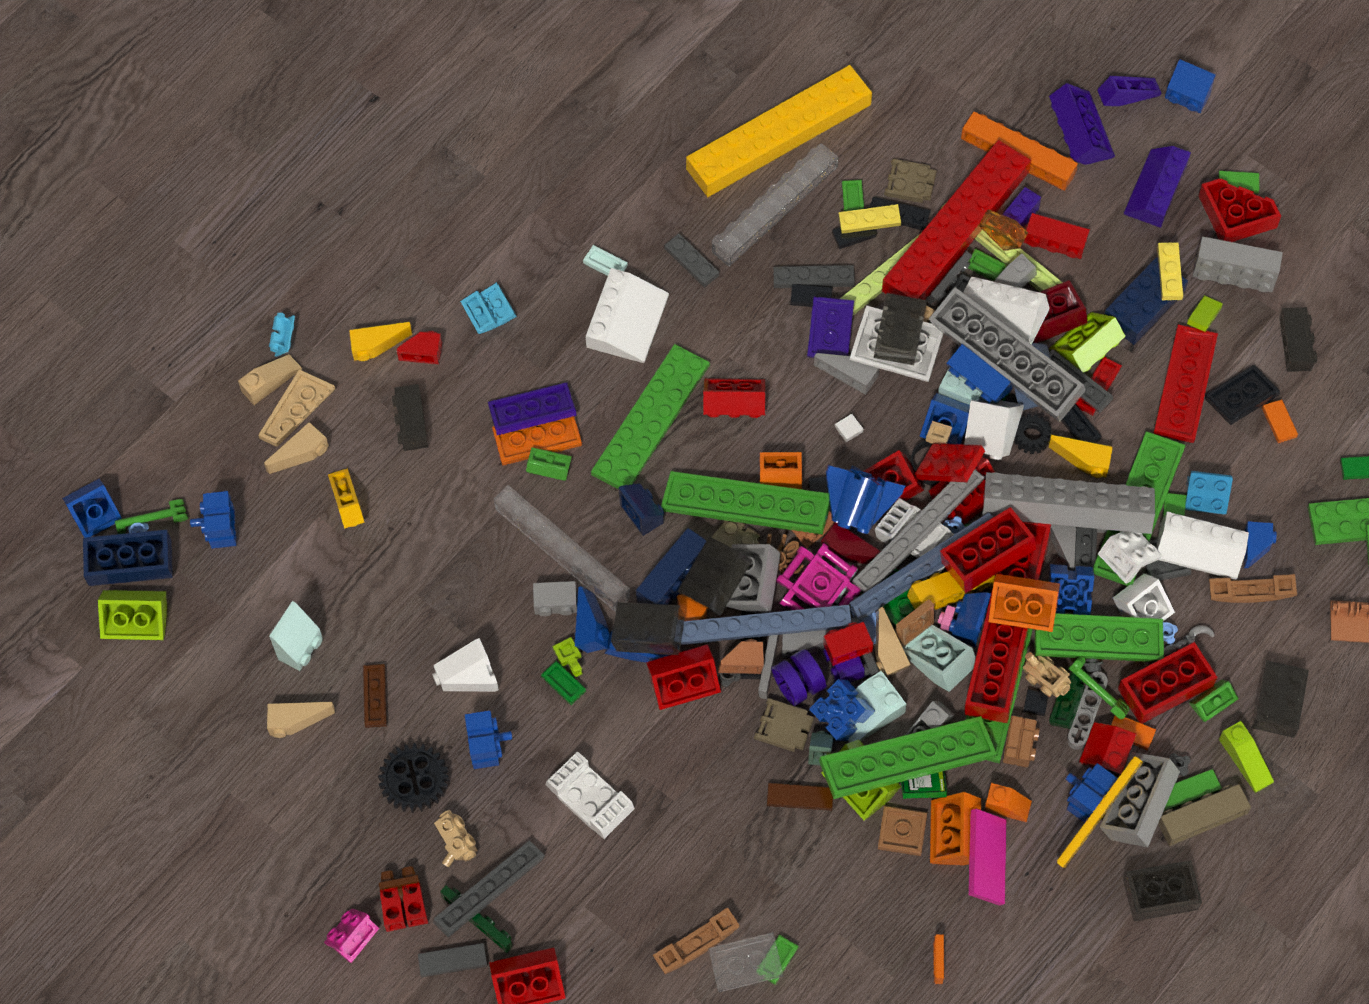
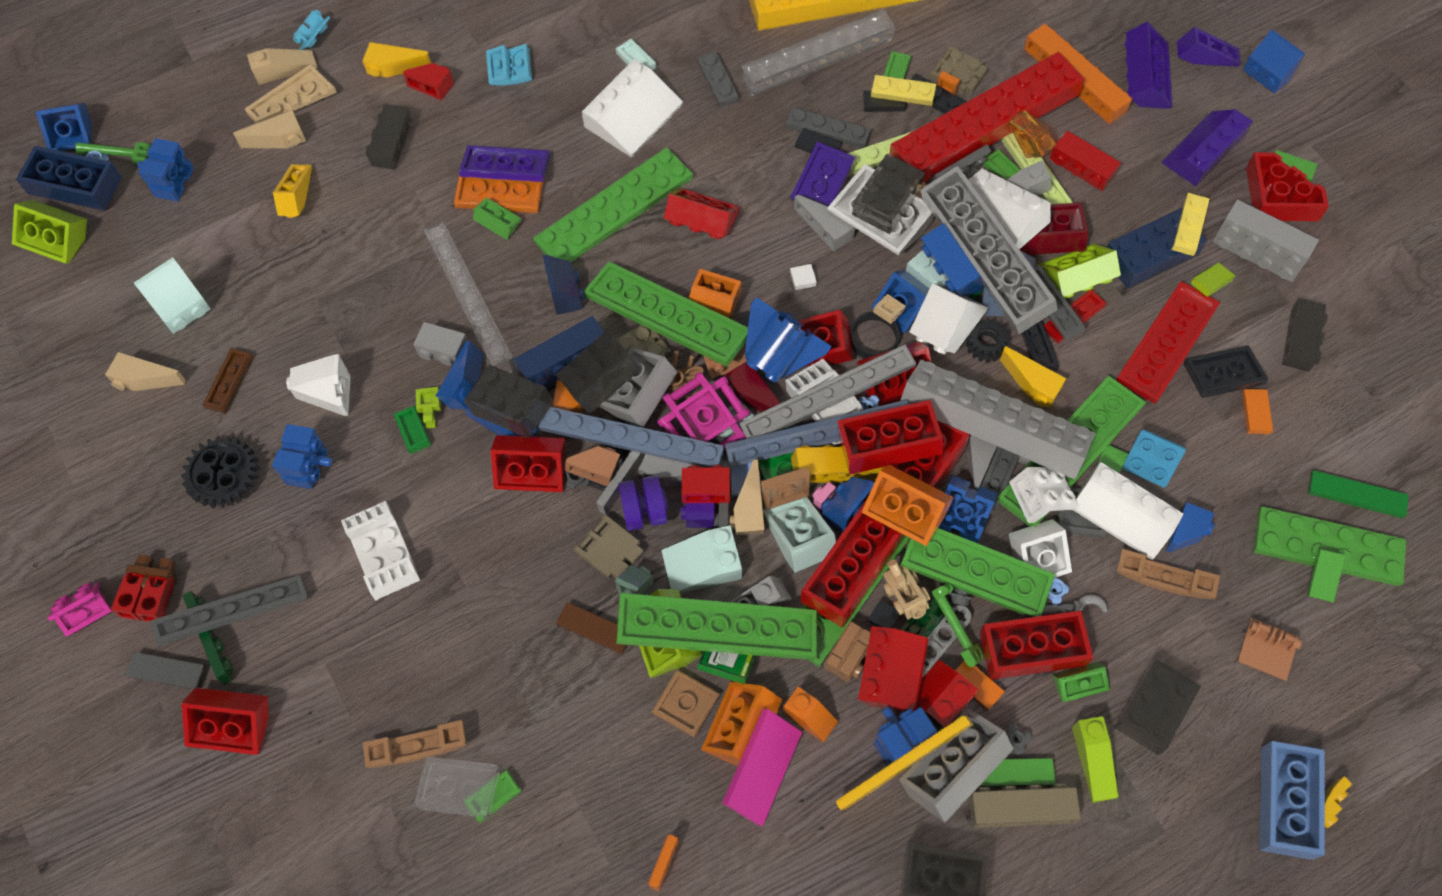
camera: 20 degrees right, 0 degrees up
(458, 842) = (228, 546): tan brick -> none
(842, 710) = (672, 552): blue brick -> none
(907, 197) = (948, 82): none -> orange tile
(950, 462) = (887, 338): red plate -> none
(1023, 206) = (1061, 121): dark purple brick -> none
(1061, 742) = (893, 669): none -> red slope

